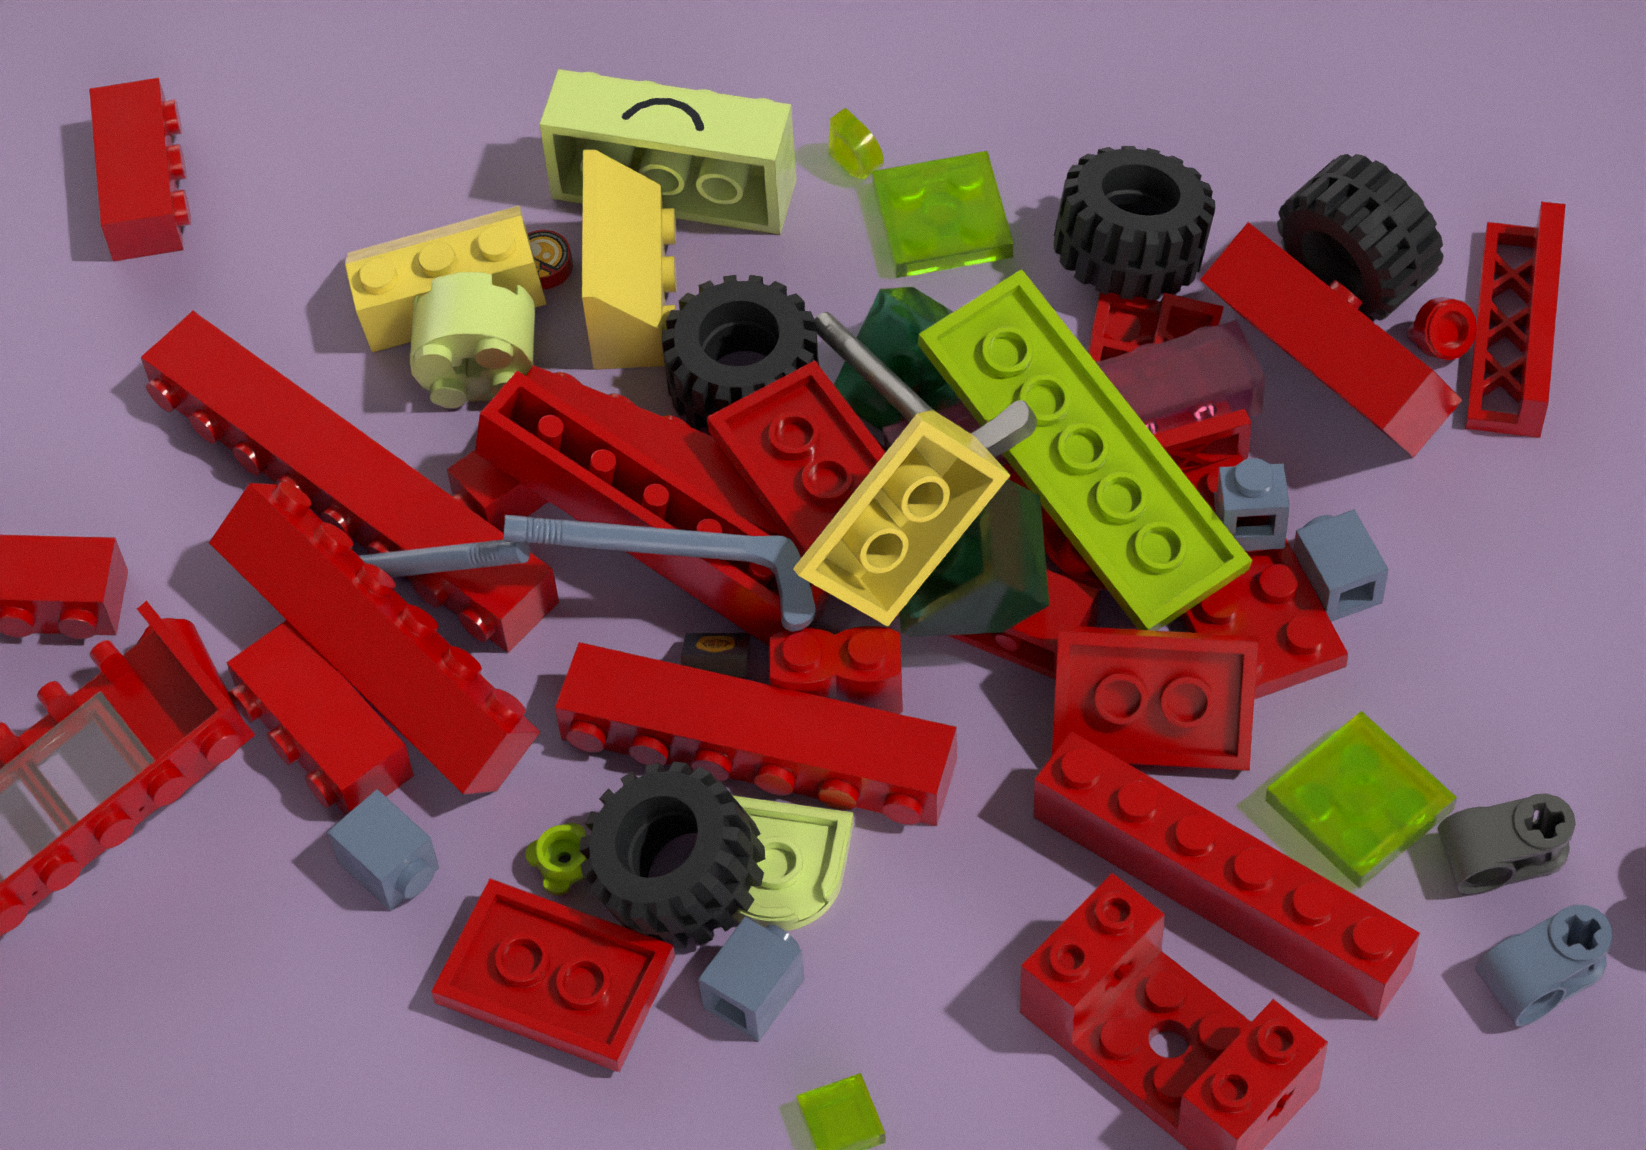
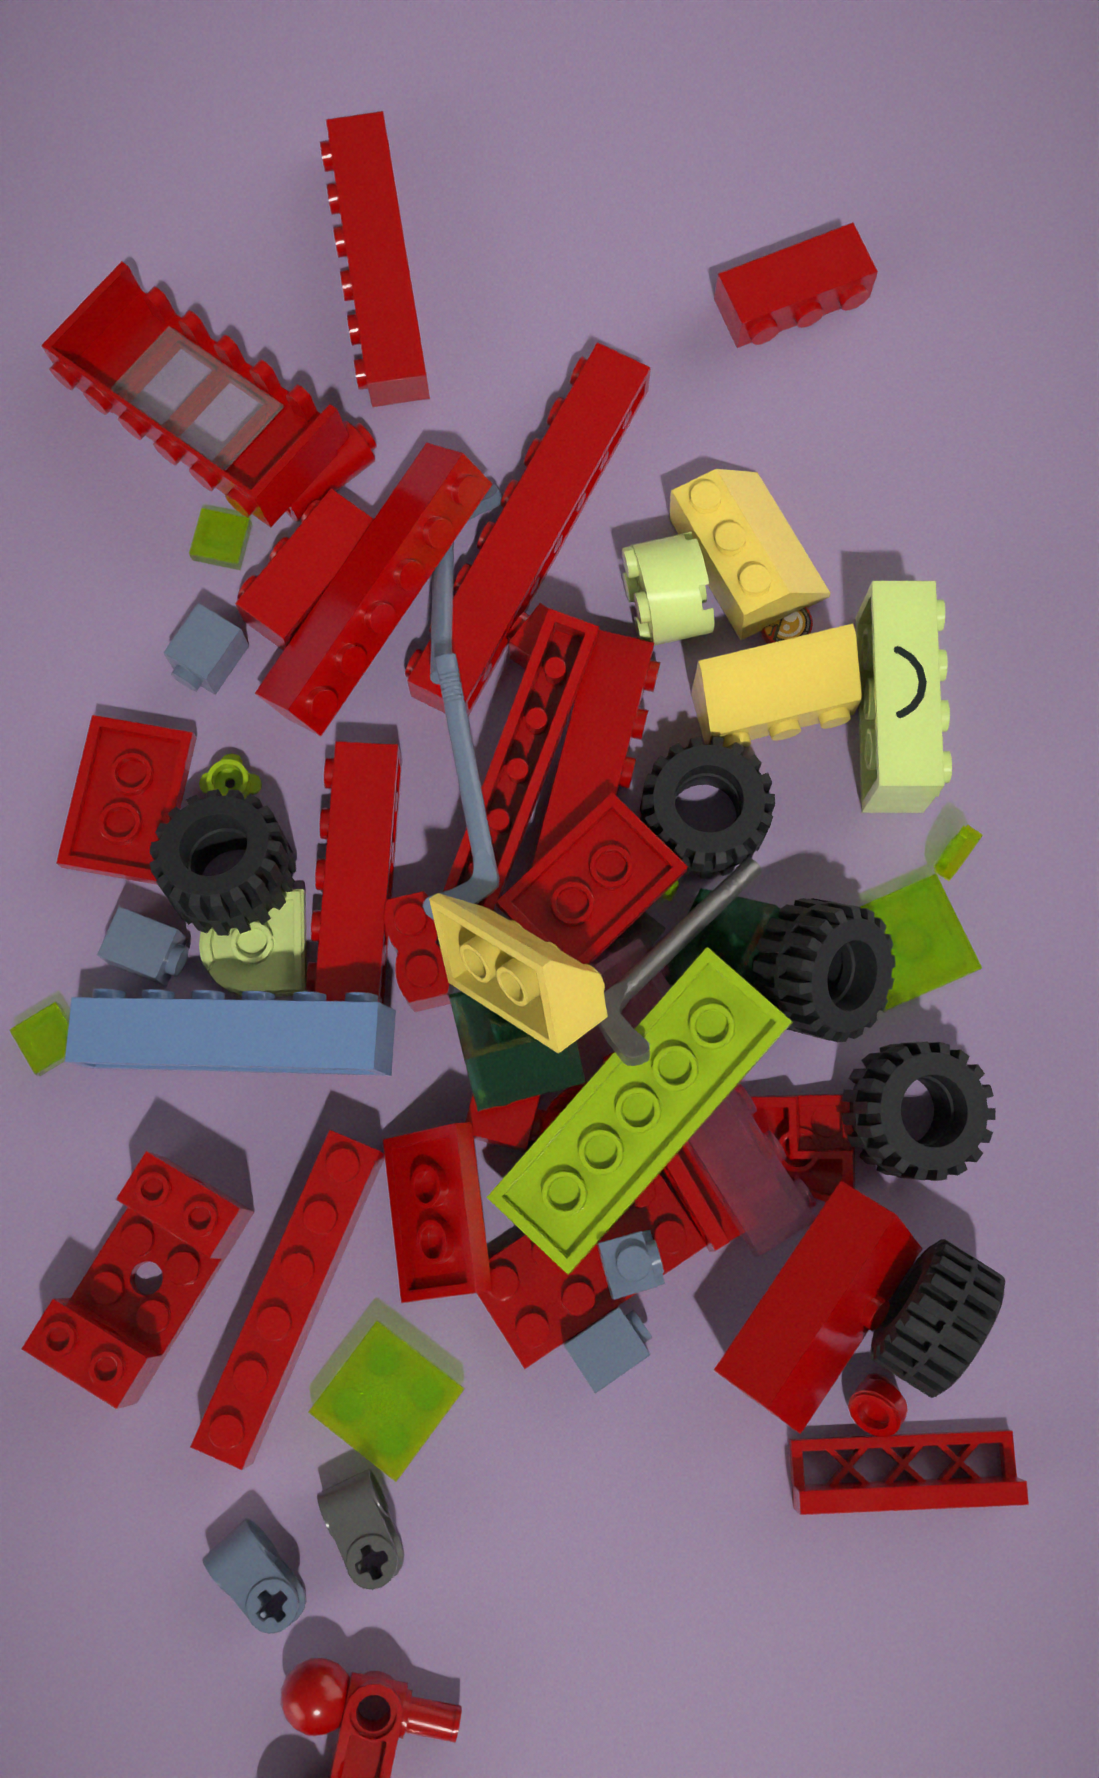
camera: 75 degrees right, 20 degrees up
(235, 824) = (220, 539): none -> clear neon green tile
(717, 652) = (424, 853): tile -> none
(893, 872) = (232, 1034): none -> medium blue brick
(952, 254) = (826, 967): none -> black tyre

